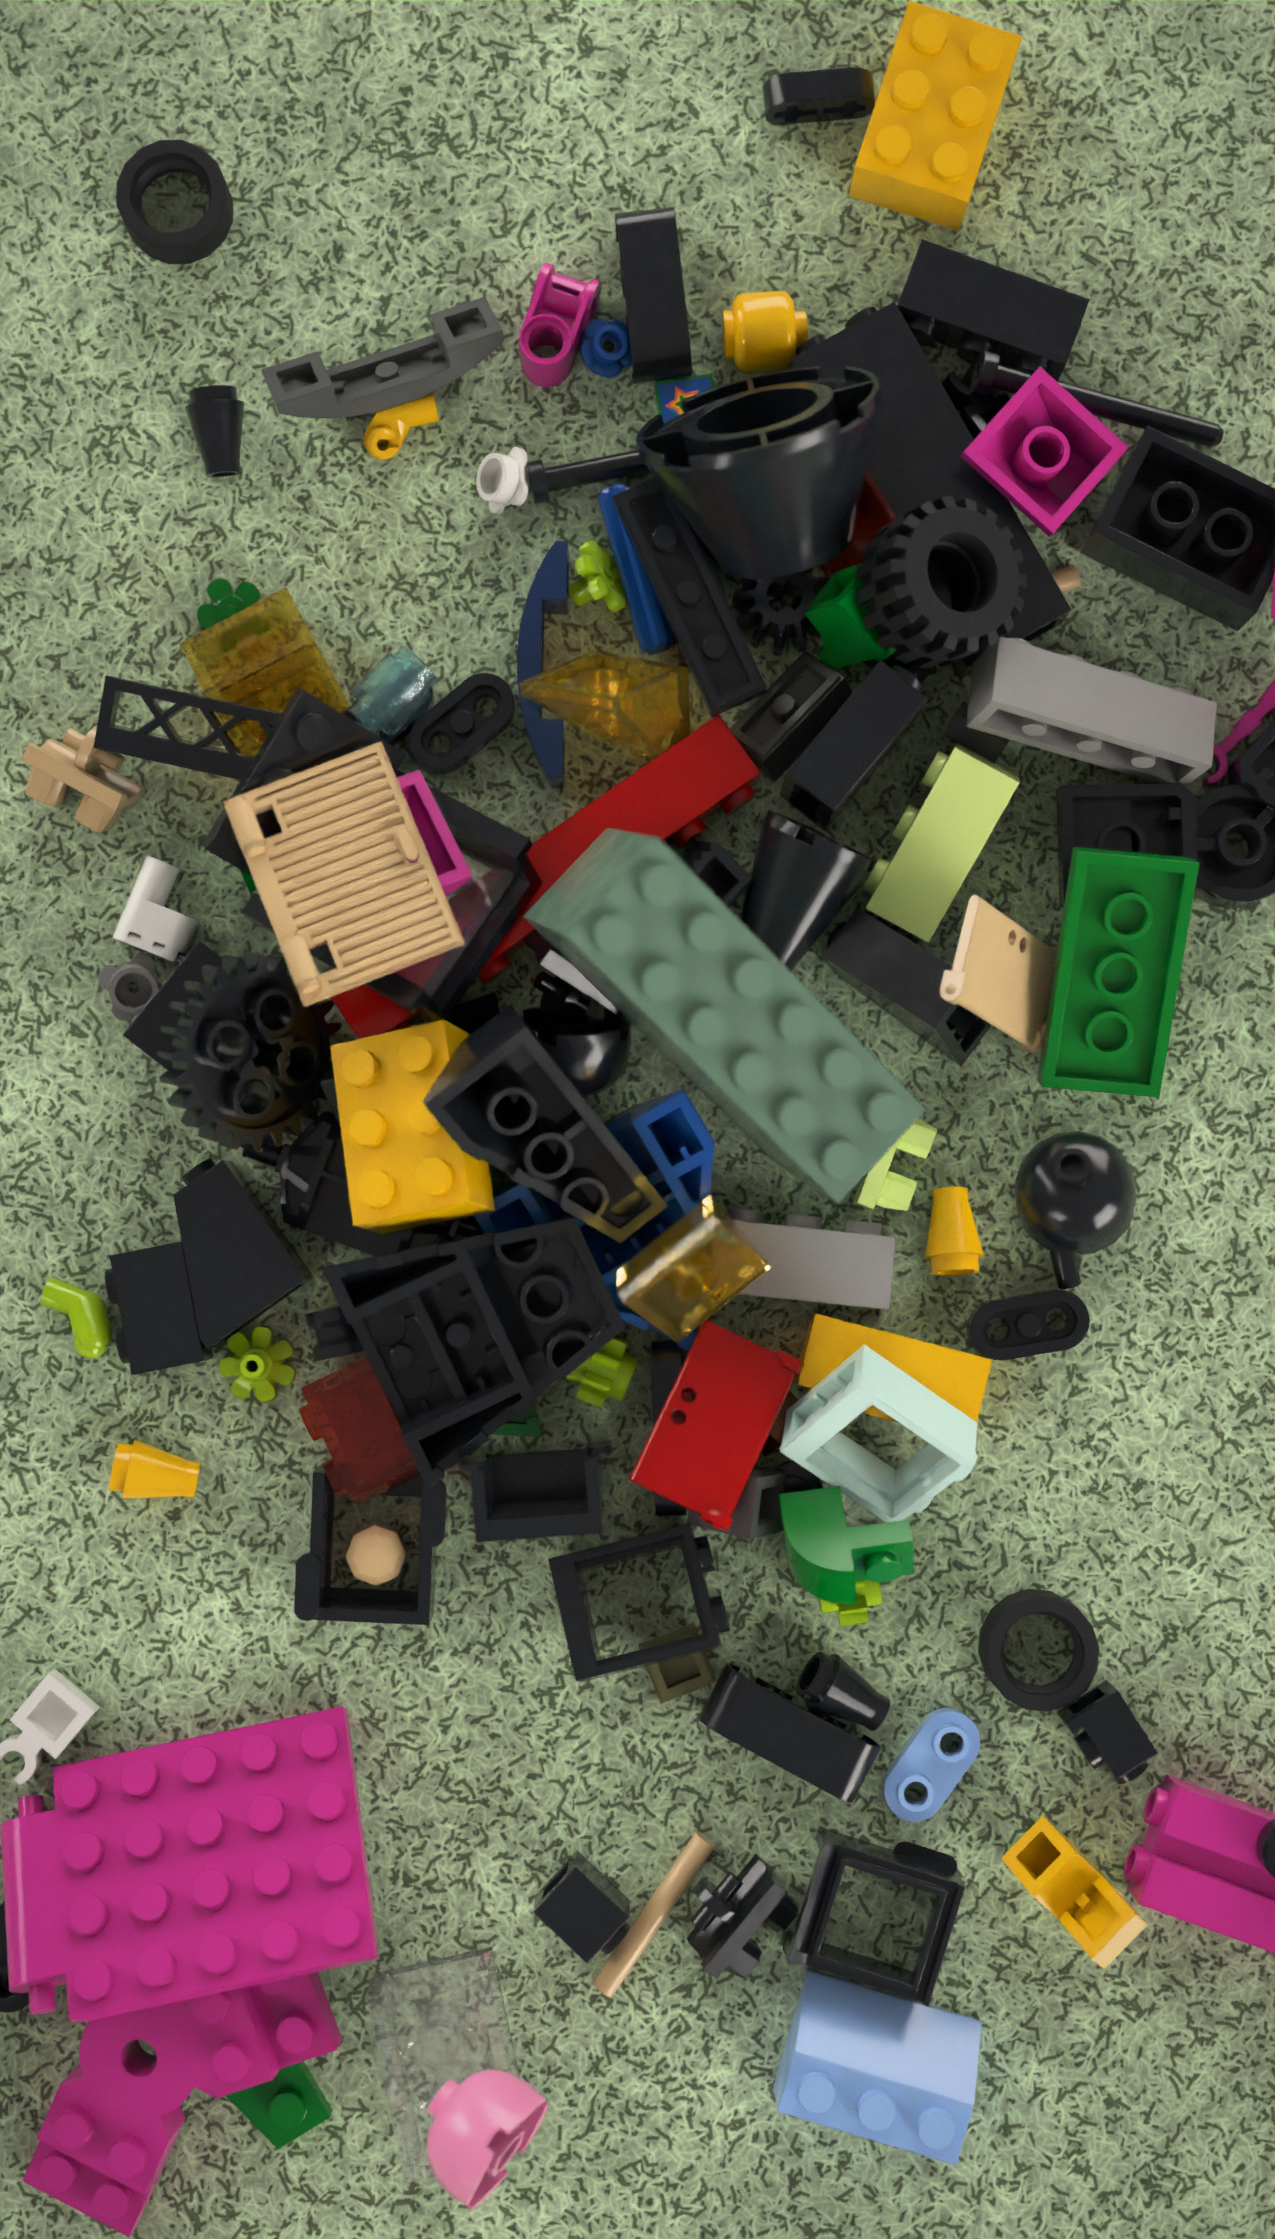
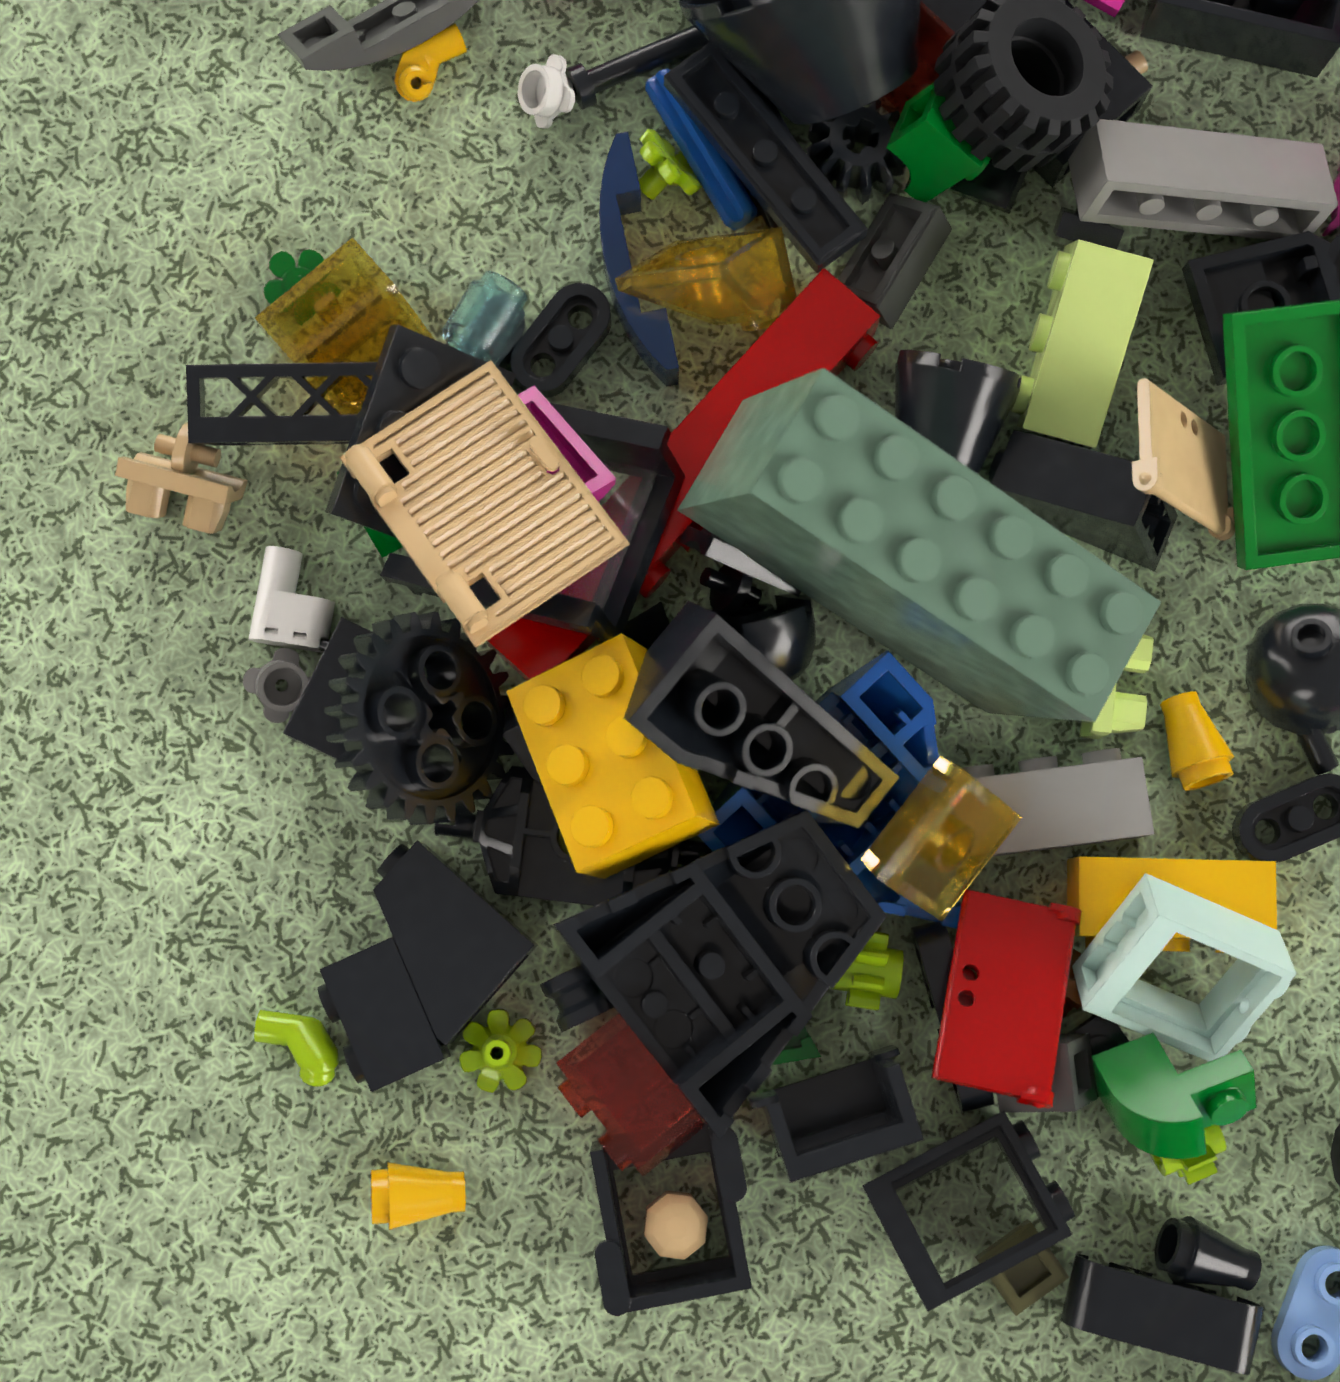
camera: 15 degrees left, 5 degrees down
(217, 427) = (244, 103): black cone -> none
(853, 743) = (969, 264): black brick -> none

